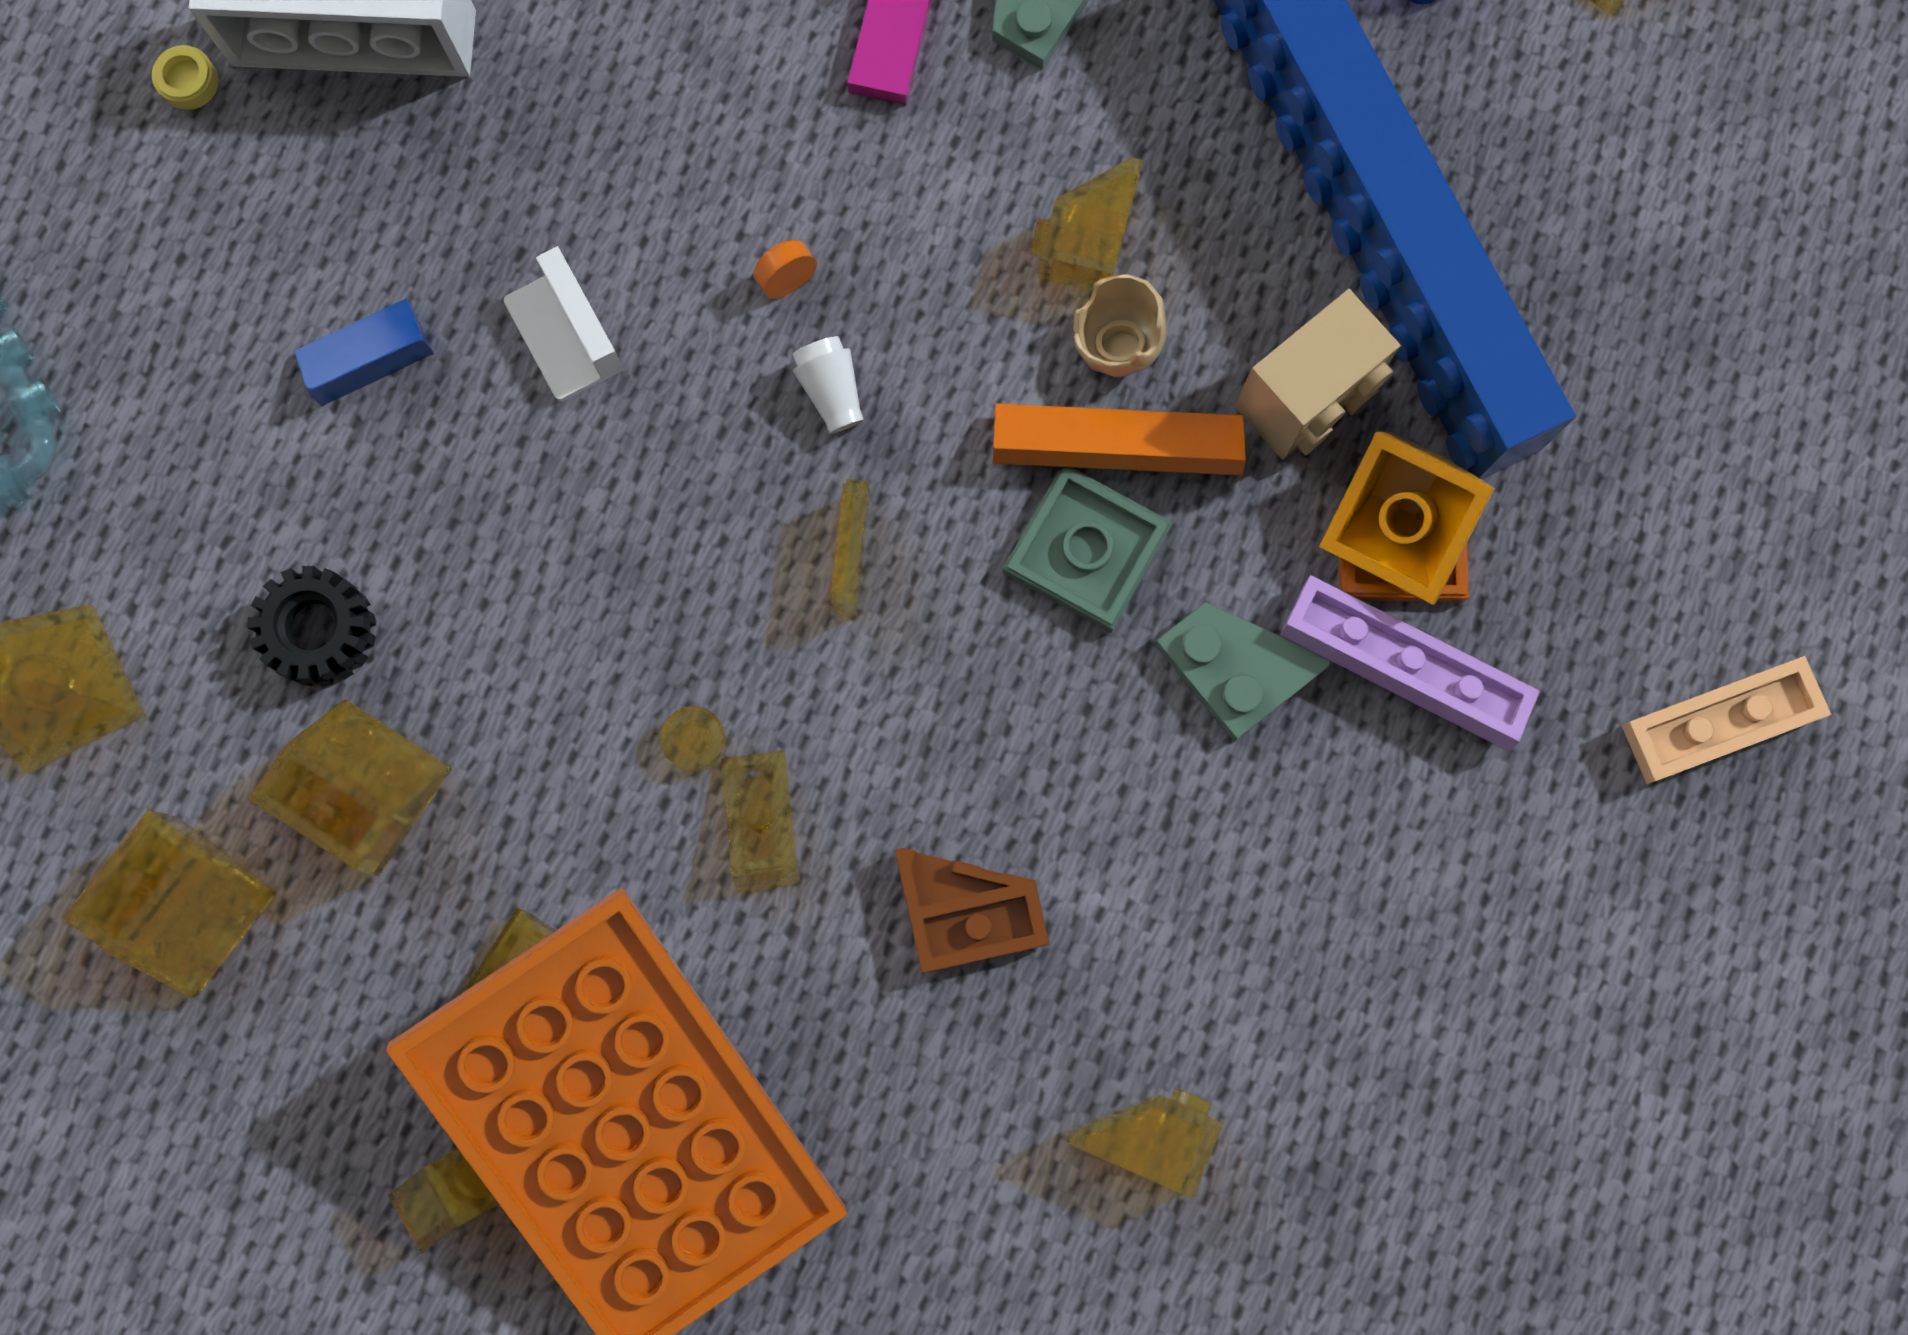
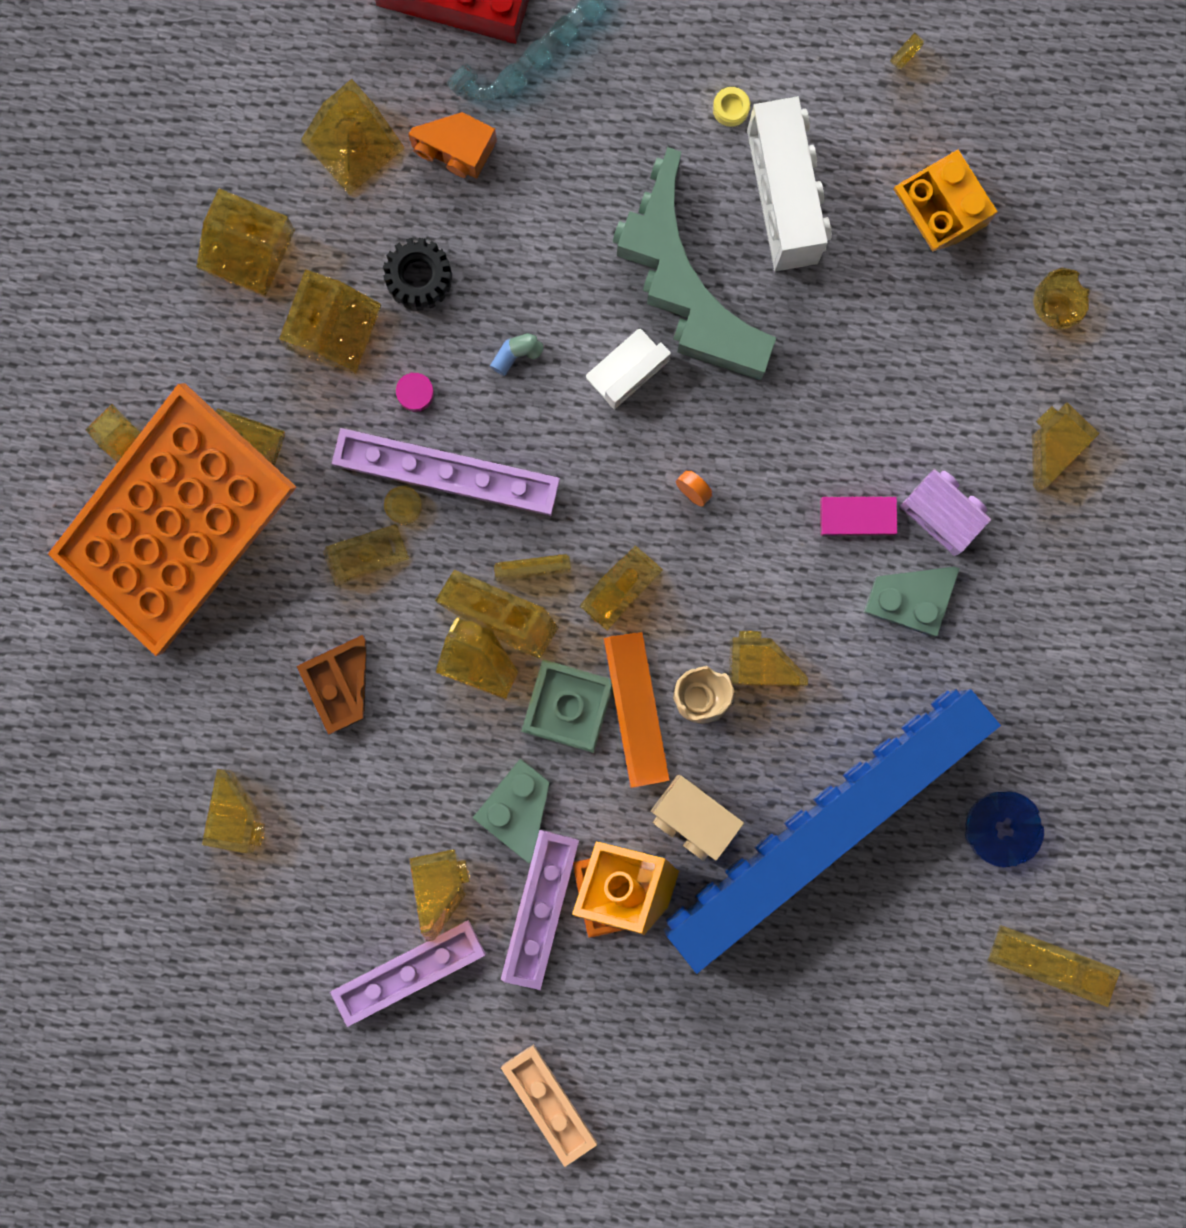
camera: 75 degrees right, 5 degrees up
(107, 514) = (456, 141): none -> orange slope
(362, 352) = (587, 256): blue slope -> none
(449, 223) = (654, 241): none -> sand green arch
(480, 498) = (516, 347): none -> arm
(509, 677) = (414, 392): none -> dark pink tile
(655, 656) = (445, 472): none -> lavender plate
(830, 382) = (630, 532): white cone -> none
(911, 619) = (508, 616): none -> clear yellow slope
(919, 418) = (620, 587): none -> clear yellow slope
(979, 671) = (476, 659): none -> clear yellow slope
(1342, 816) = (438, 889): none -> clear yellow slope
(1471, 902) = (407, 973): none -> lavender plate

